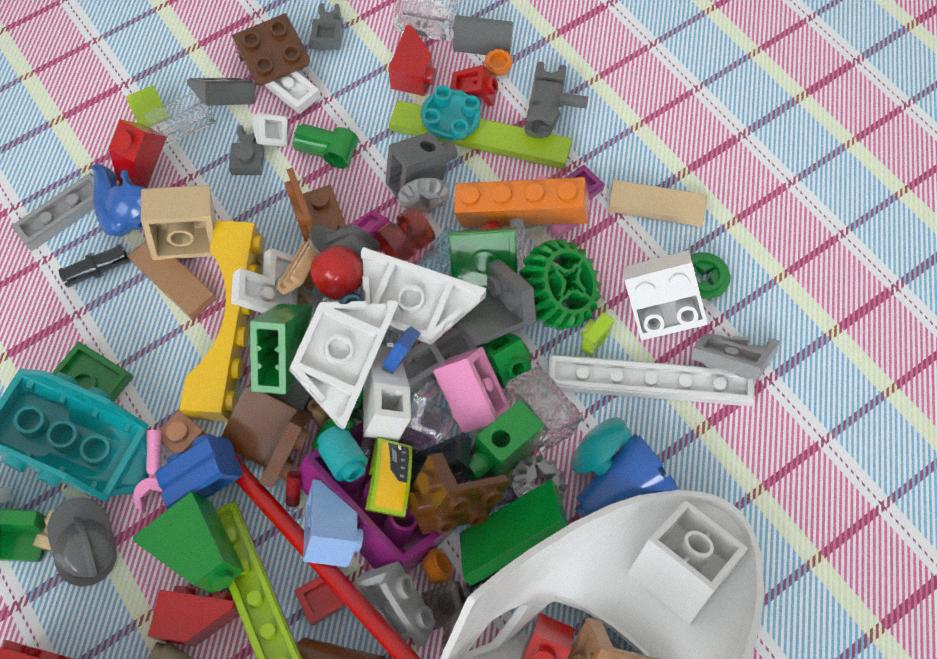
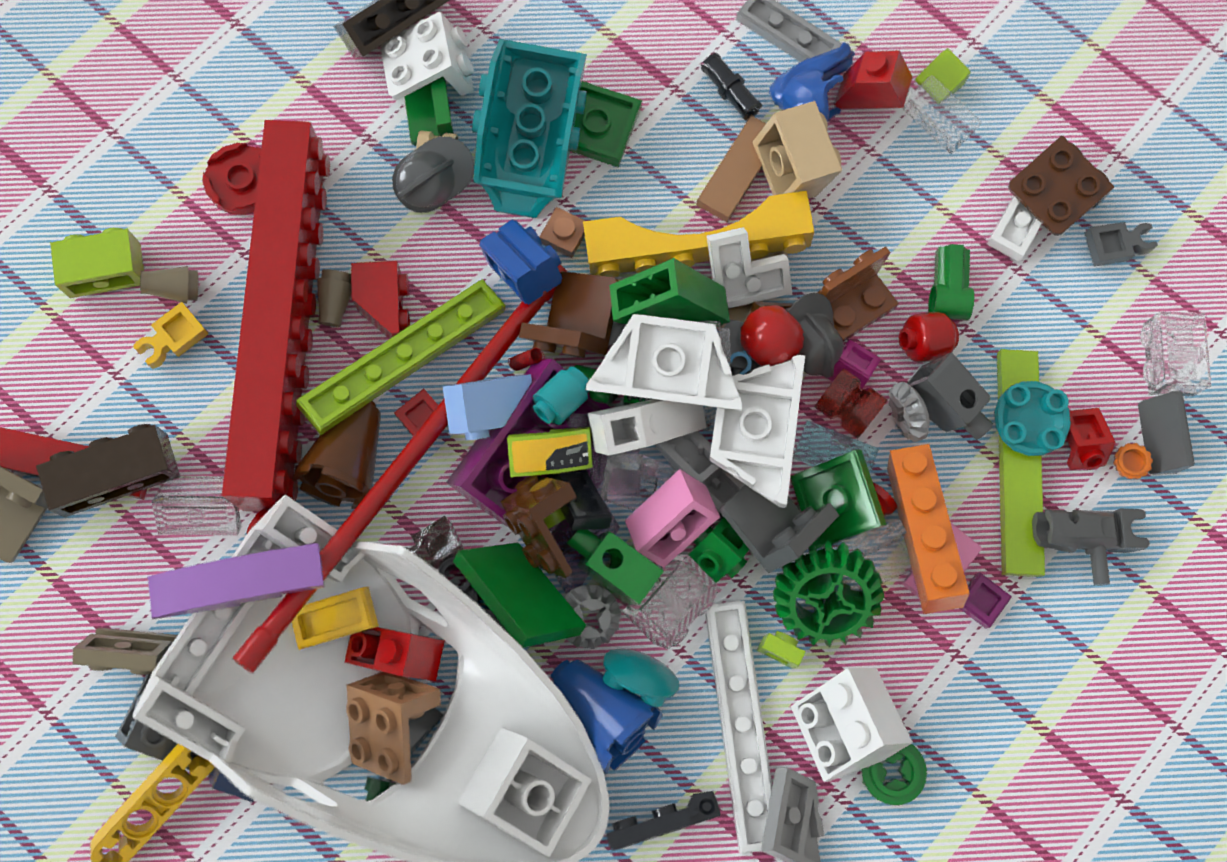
camera: 70 degrees right, 10 degrees up
(153, 463) = (521, 216): bright pink piece -> none
(193, 544) = (446, 278): green slope -> none
(223, 91) = (987, 148): dark grey slope -> none
(246, 156) = (914, 202): dark grey plate -> none
(270, 129) = (952, 217): white slope -> none
(298, 268) = (768, 294): light nougat tile -> none
(365, 166) = (928, 336): none -> red head
(398, 601) = (424, 493): light grey bracket -> none
(400, 349) = (690, 427): blue tile -> none
(411, 65) = (1093, 355): red slope -> none
(437, 566) = (477, 526): orange piece -> none
(657, 203) = (983, 699): tan tile -> none
(723, 454) = (665, 821): none -> black hinge

